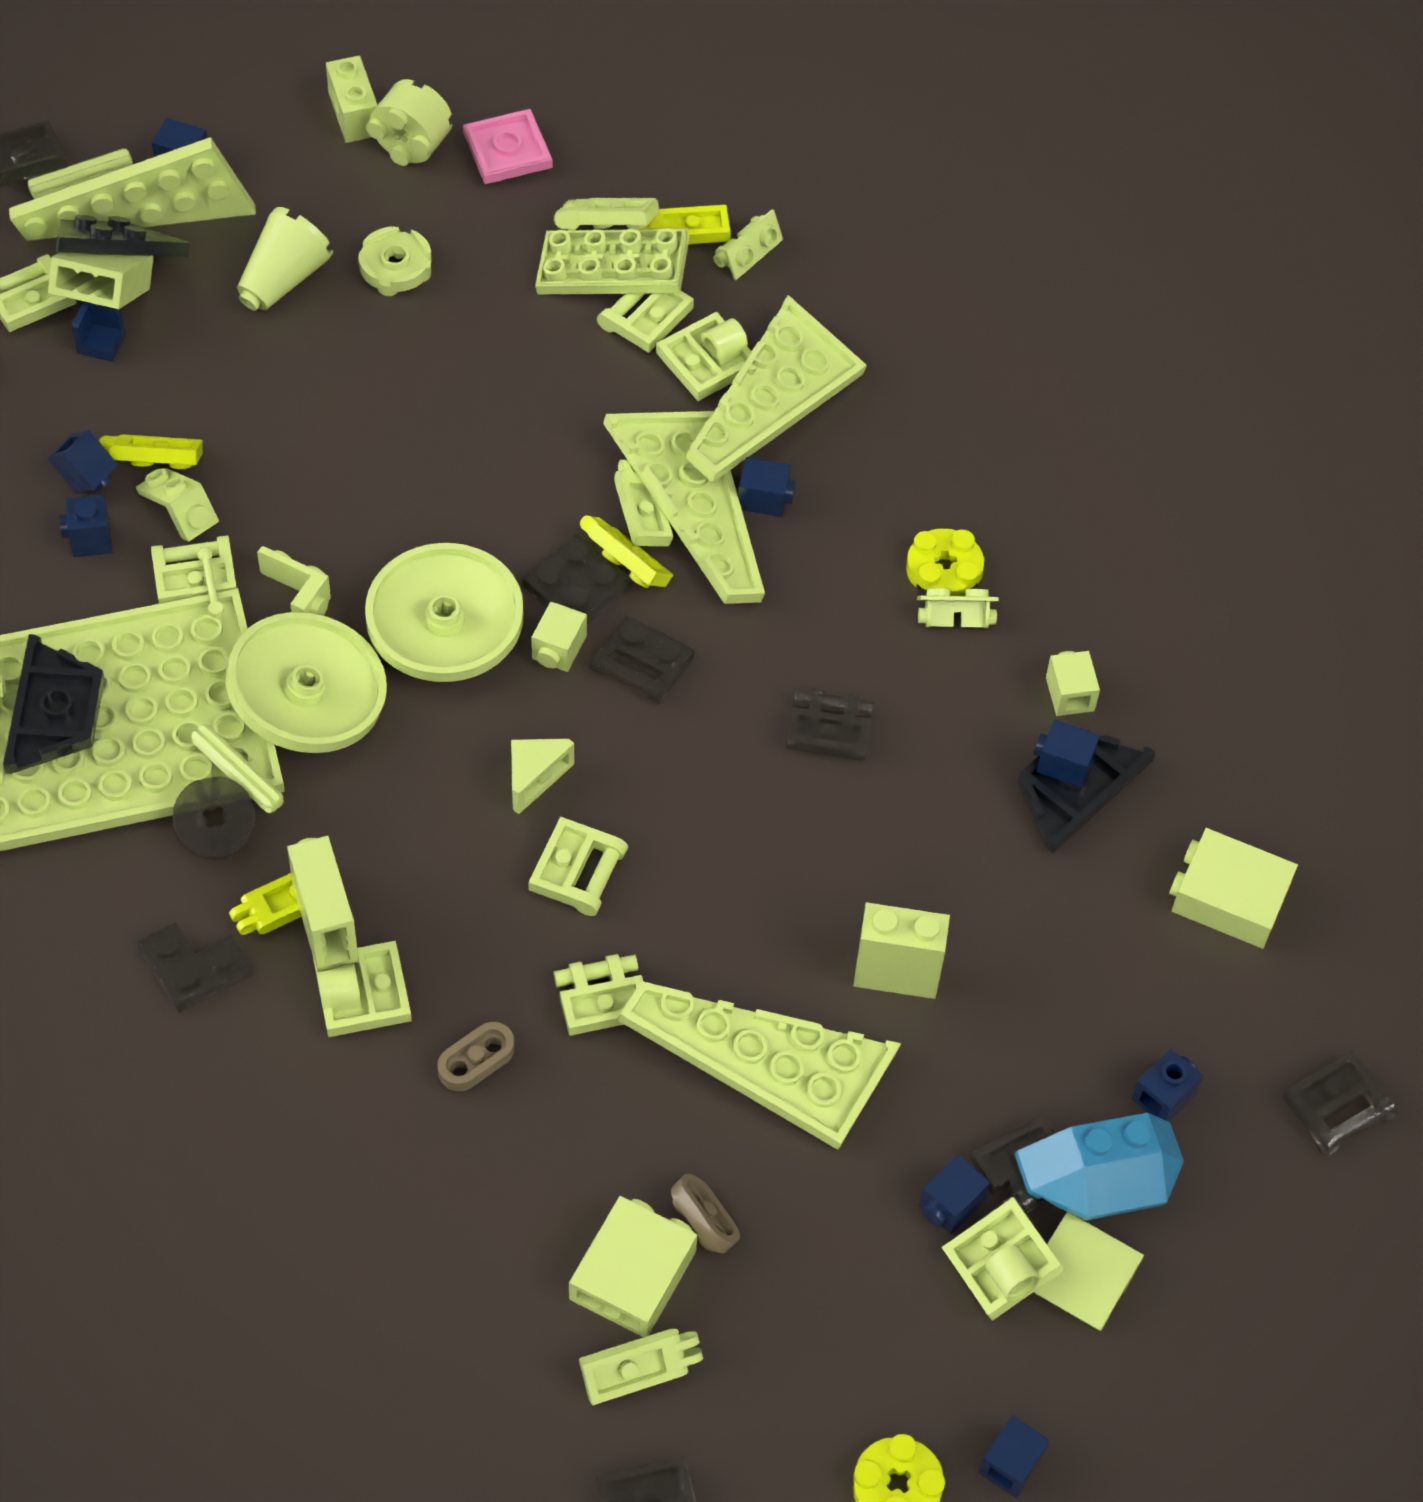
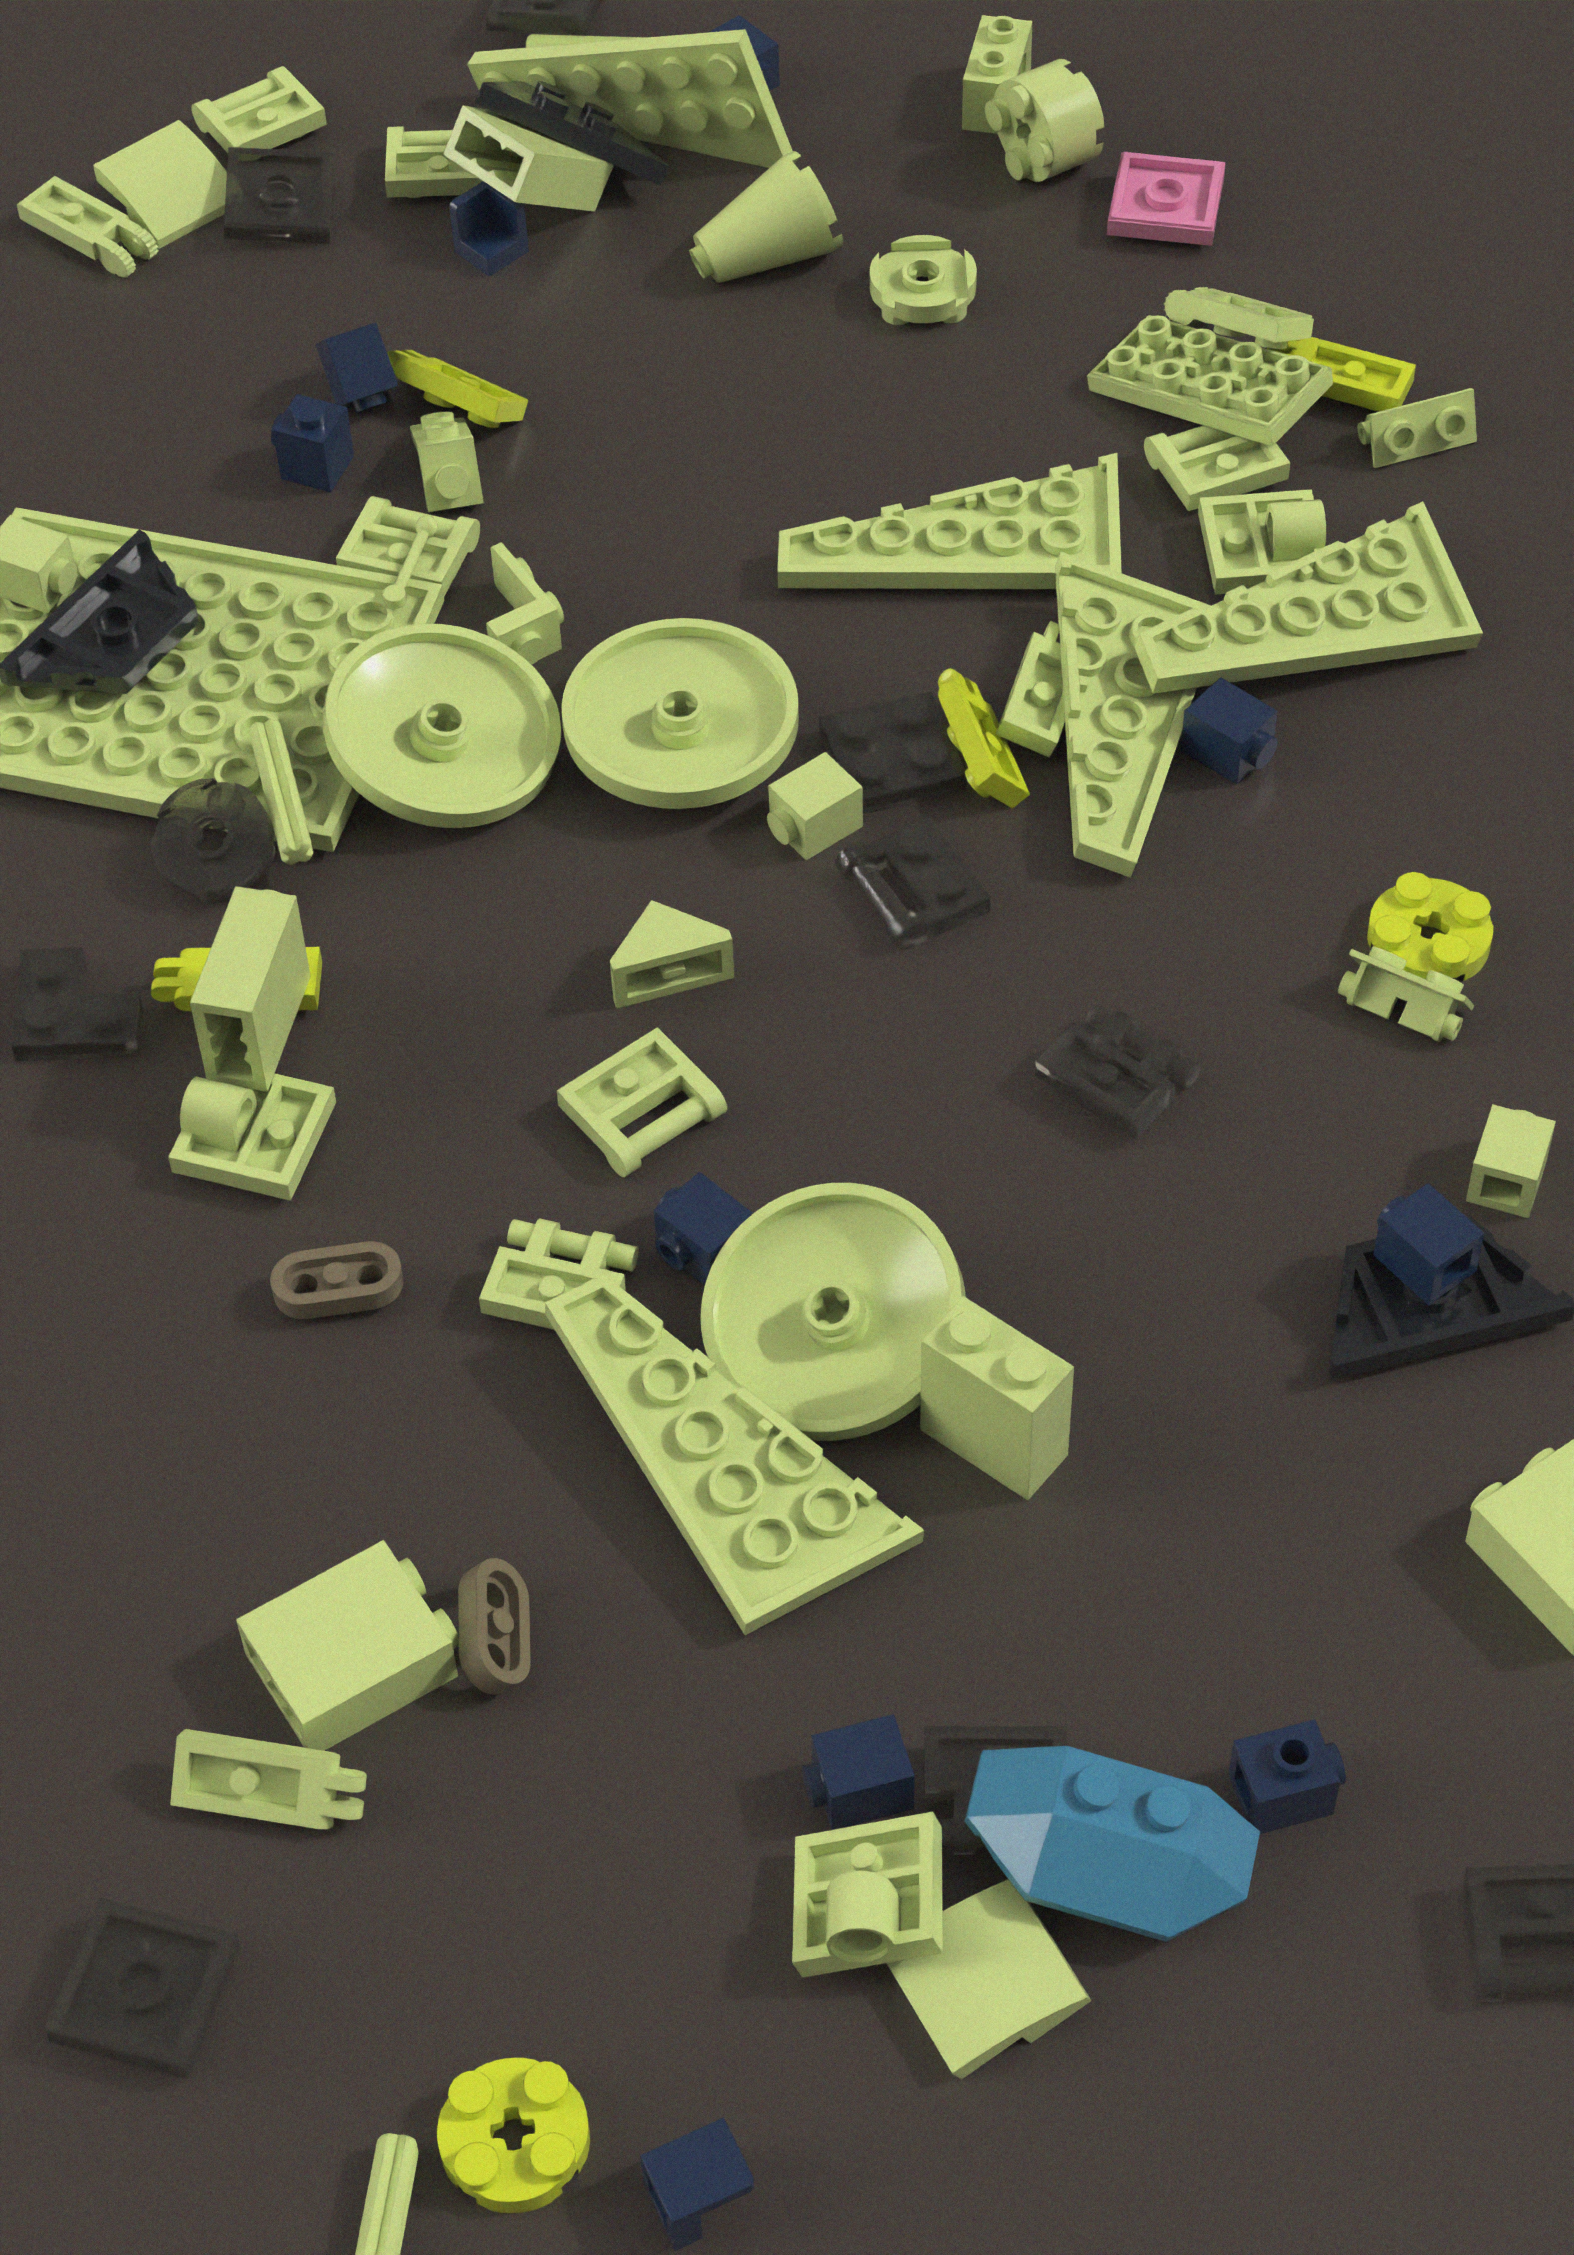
camera: 35 degrees right, 5 degrees down
(534, 423) = (966, 538): none -> yellowish green wing
(666, 927) = (695, 1225): none -> dark blue brick
(775, 938) = (829, 1305): none -> yellowish green dish

